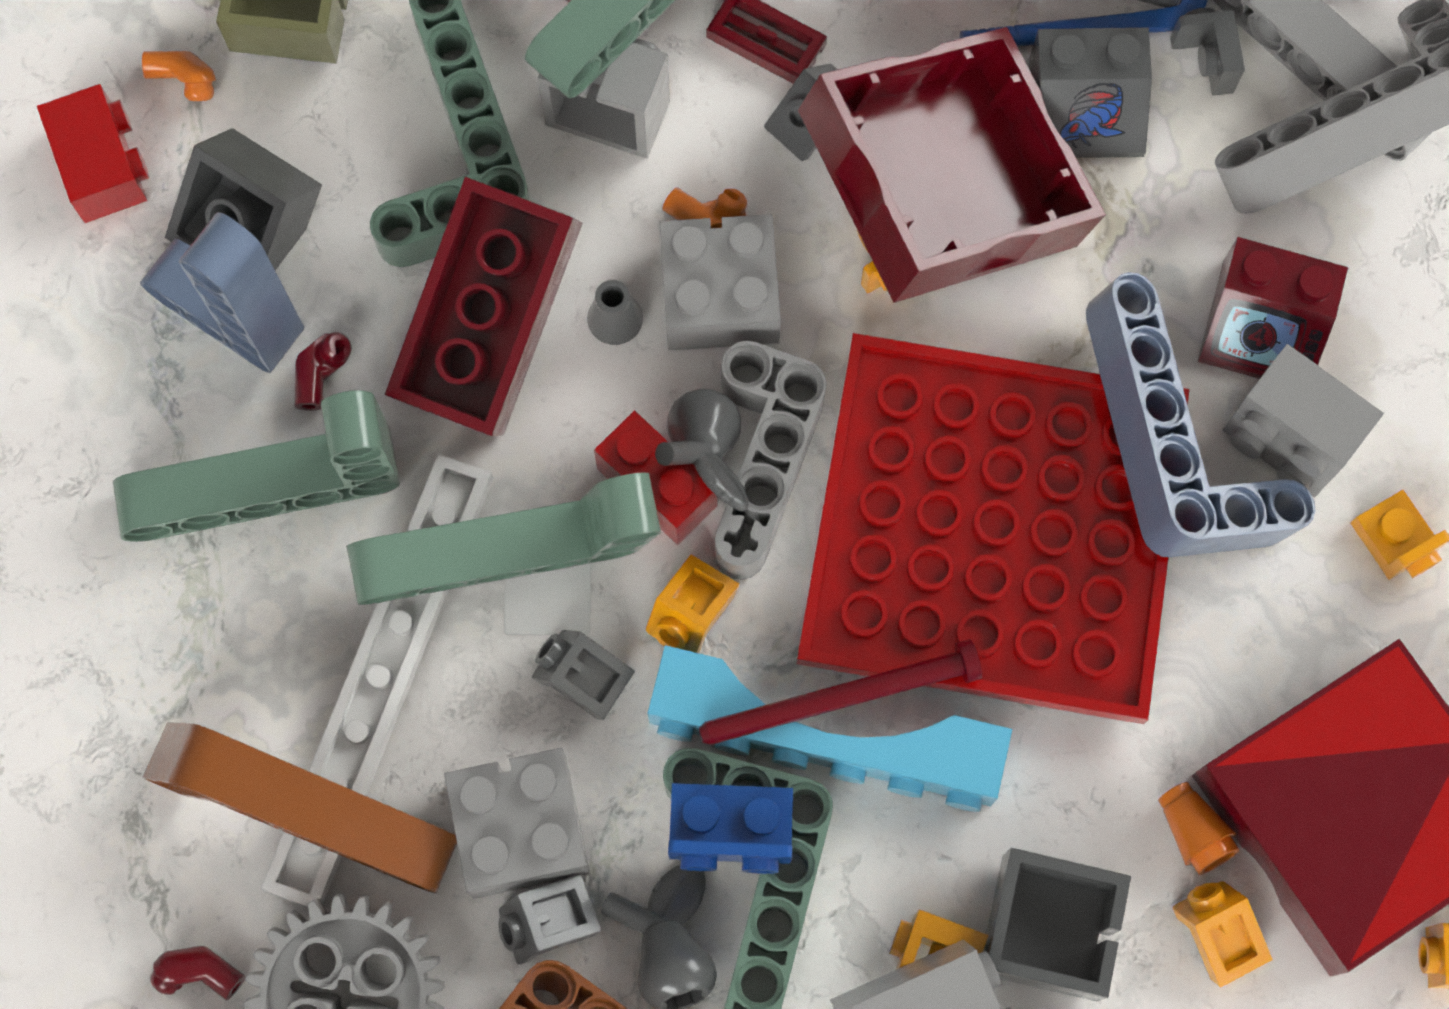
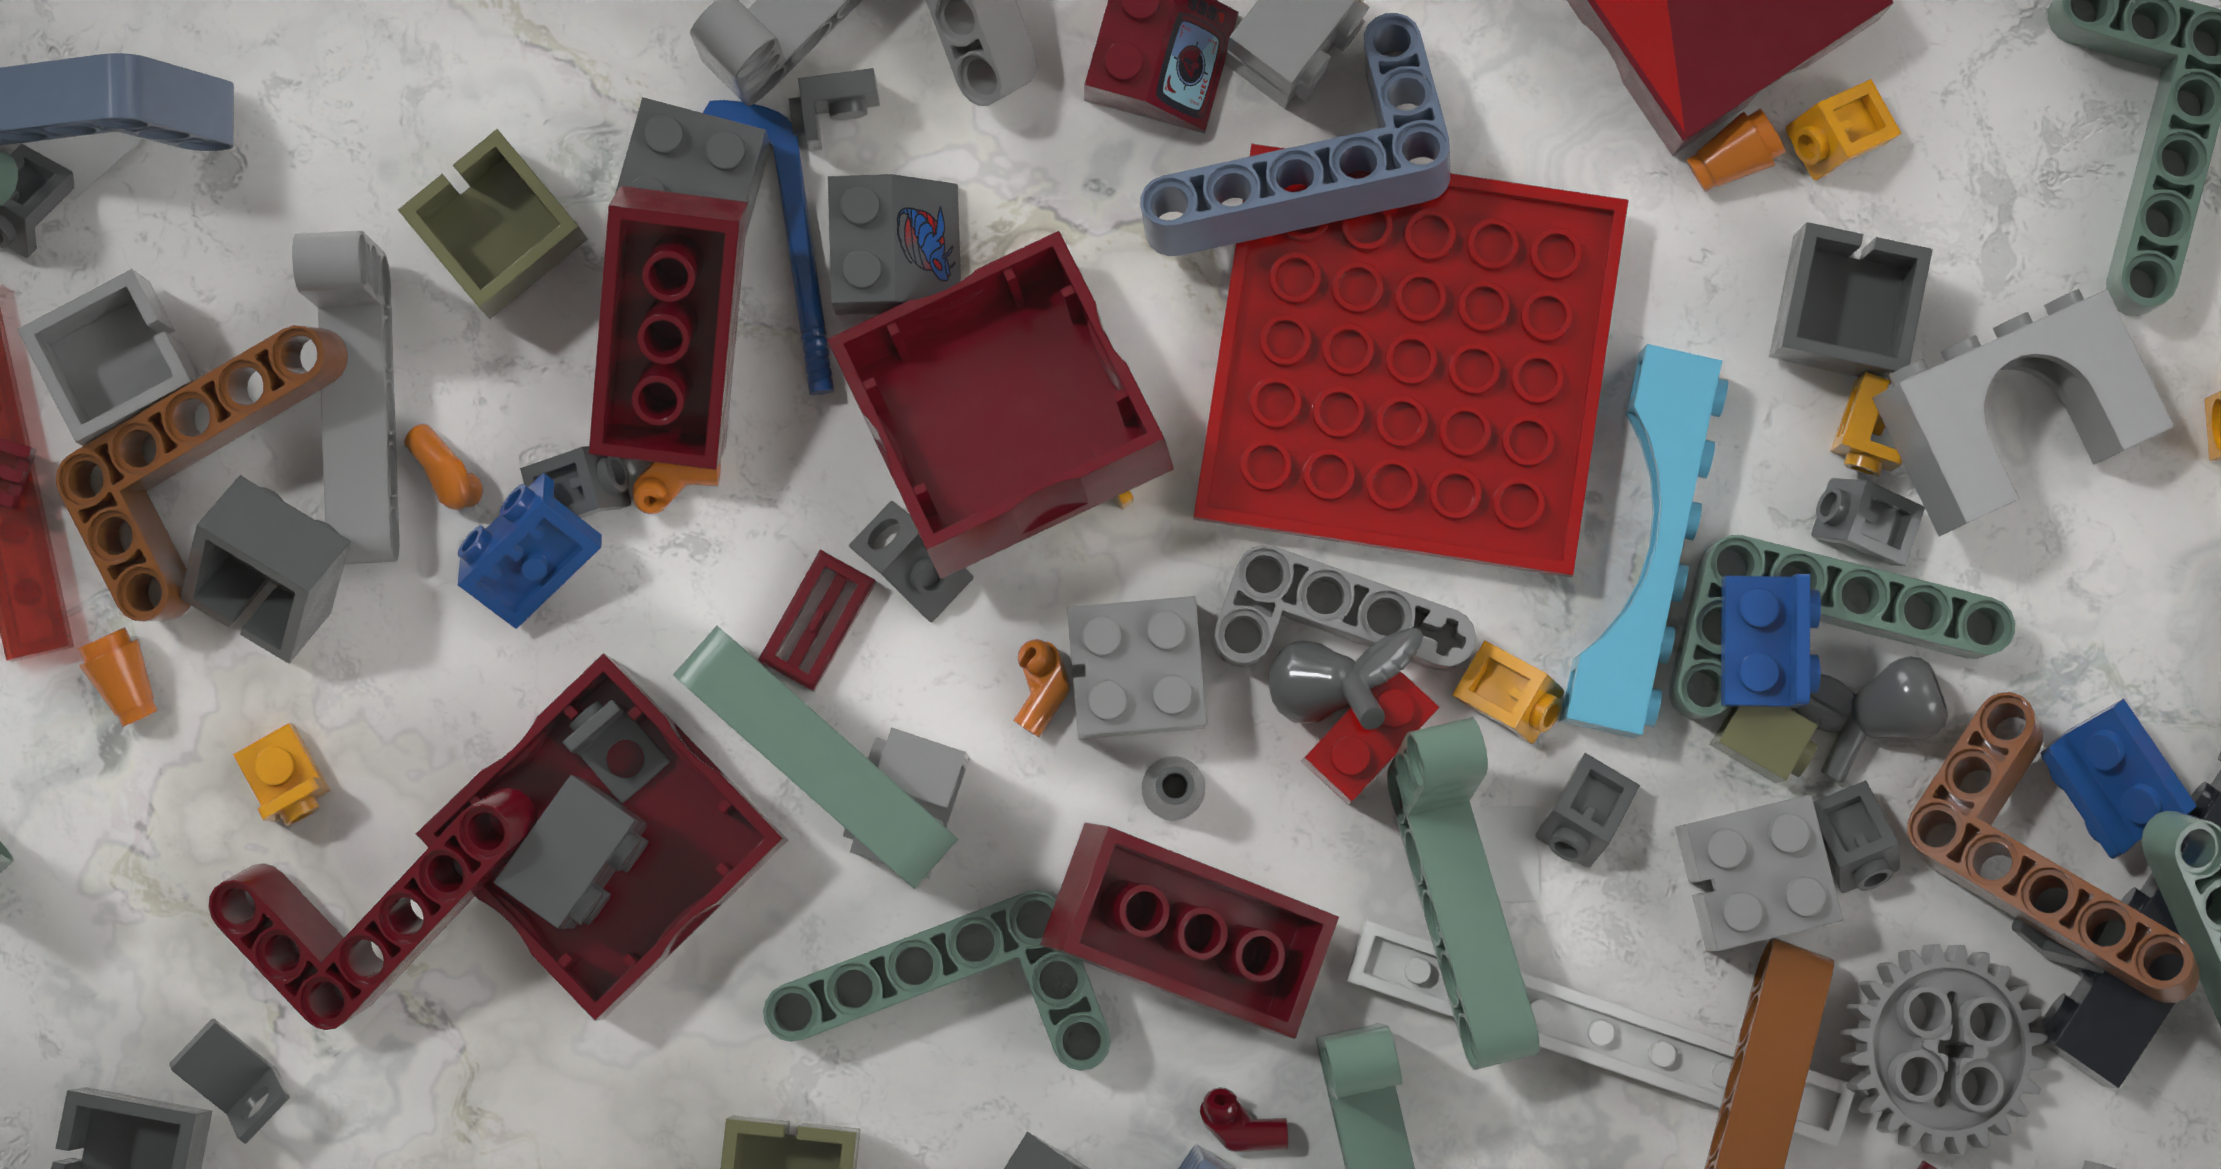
camera: 95 degrees left, 10 degrees up
(640, 837) = (1767, 740): none -> olive brick
(847, 942) = (1868, 519): none -> dark grey bracket
(962, 662) = (1627, 546): dark red bar -> none

